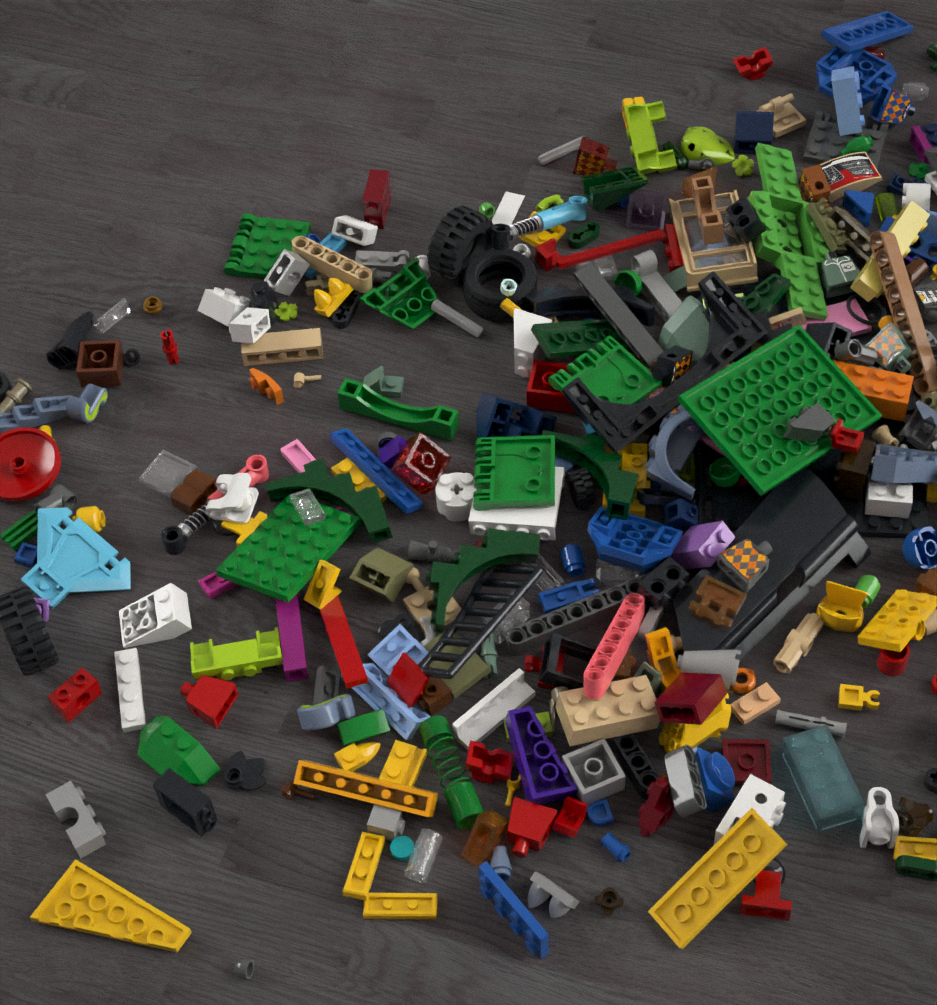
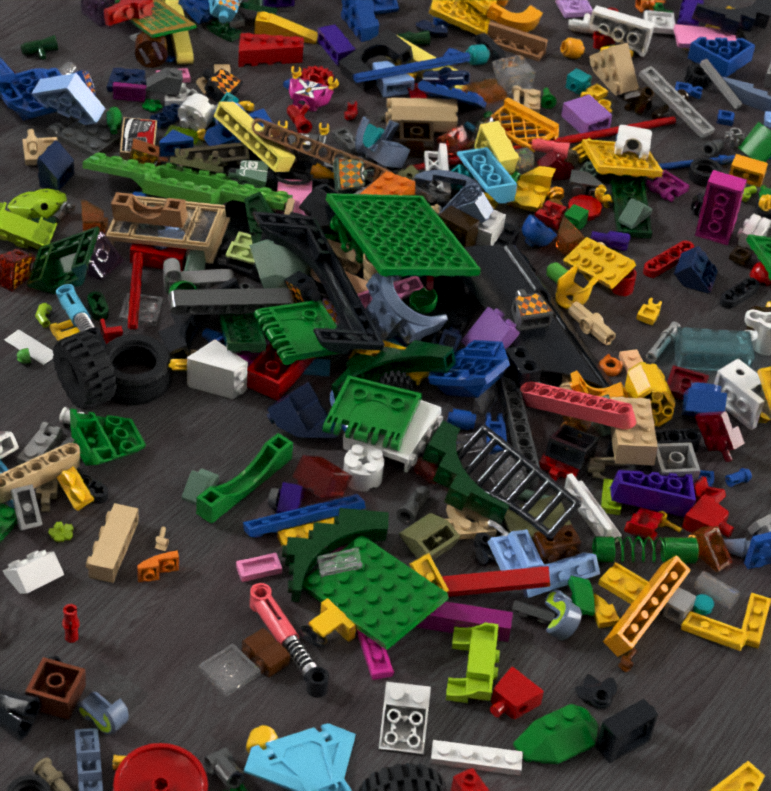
camera: 80 degrees left, 10 degrees down
(238, 501) = (308, 604): white piece -> none
(249, 325) = (87, 548): white brick -> none
(264, 298) = (52, 540): black brick -> none
(407, 679) = (553, 546): red piece -> none
(457, 318) = (152, 411): light grey axle -> none
(508, 282) = (162, 352): light aqua hinge -> none
(685, 781) = (711, 401): dark grey beam -> none
(690, 698) = (647, 375): dark red brick -> none
(711, 662) = (611, 363): light grey cone -> none
(720, 595) = (551, 335): clear orange plate -> none
(743, 166) = (82, 188): lime plant -> none
(745, 219) = (179, 187): black brick -> none
(810, 425) = (429, 221): dark grey slope -> none
(845, 438) = (446, 213): red bracket -> none
(855, 352) = (350, 186): dark grey piece -> none

